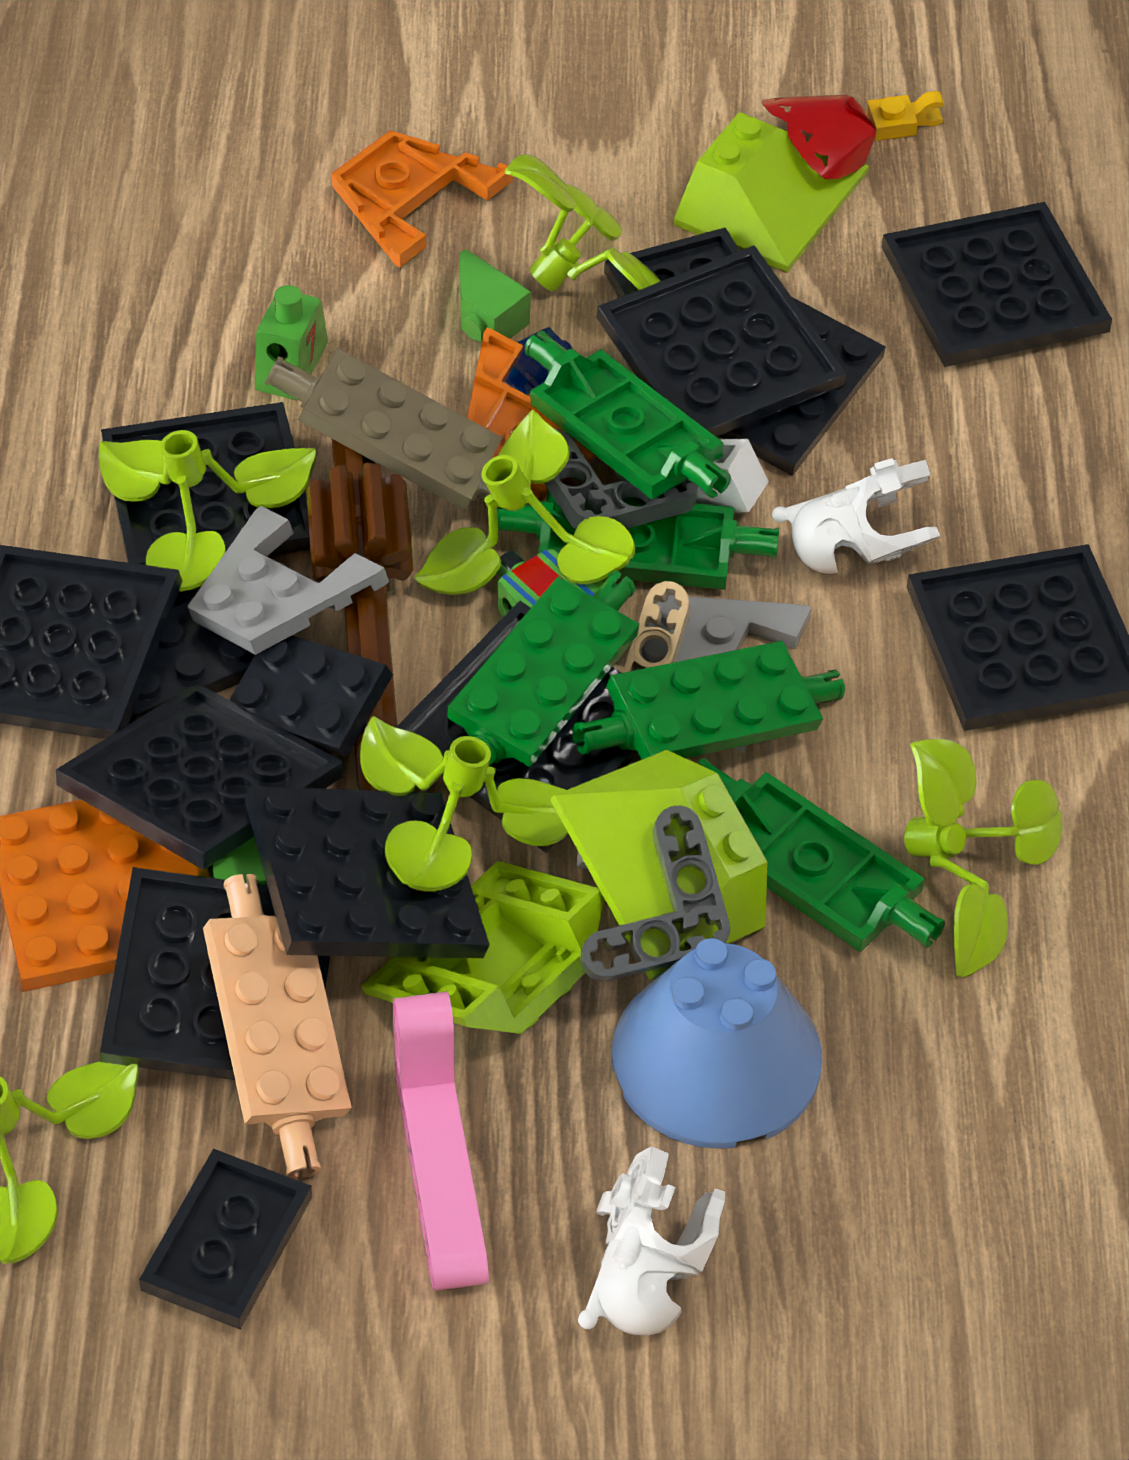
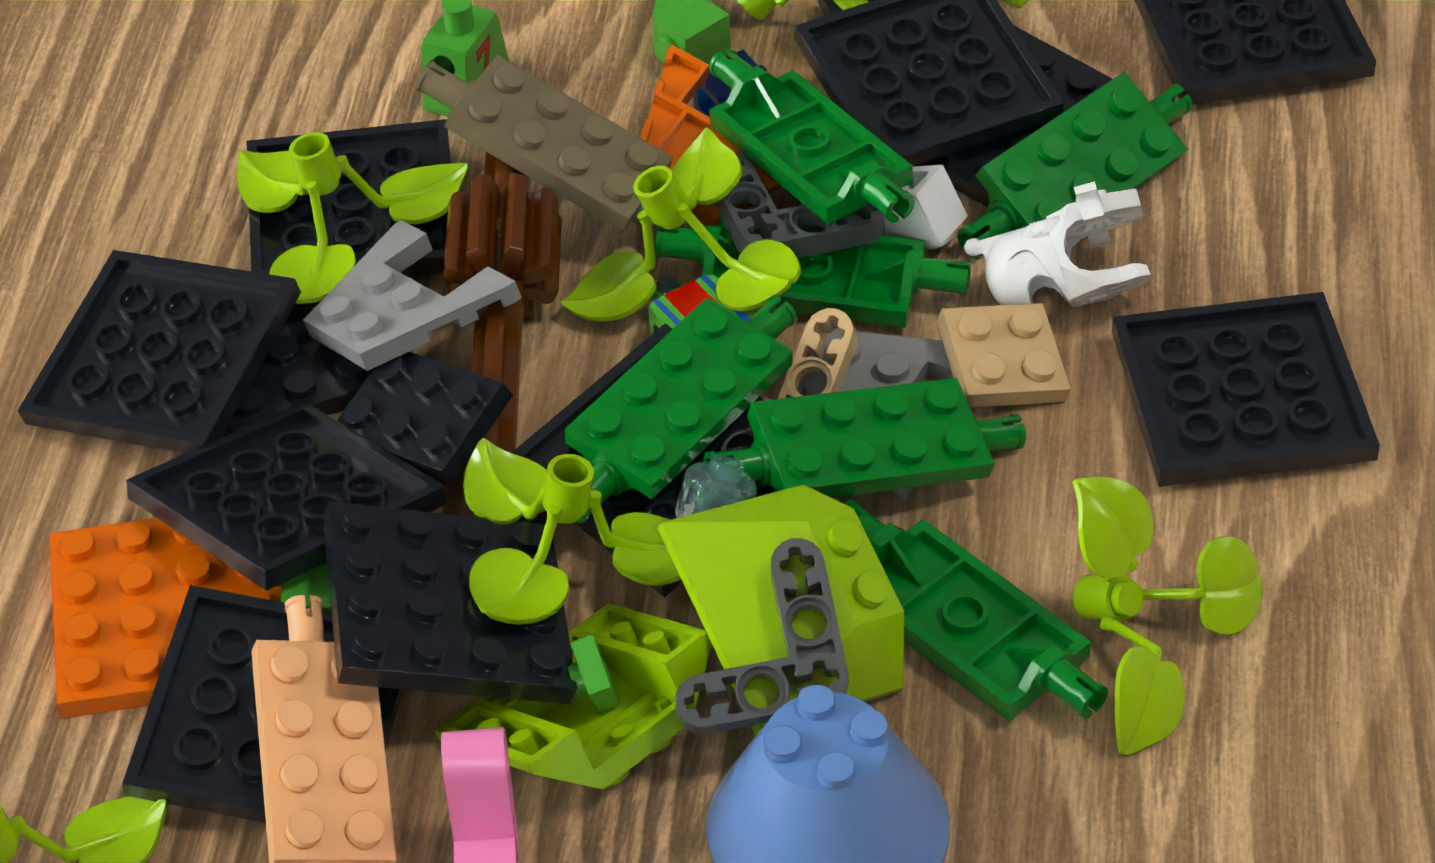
camera: 10 degrees right, 5 degrees down
(500, 930) = (592, 674): none -> bright green plate
(588, 757) = (714, 485): none -> clear light blue head
(817, 613) = (1003, 354): none -> tan plate
(861, 424) = (1103, 139): none -> green plate

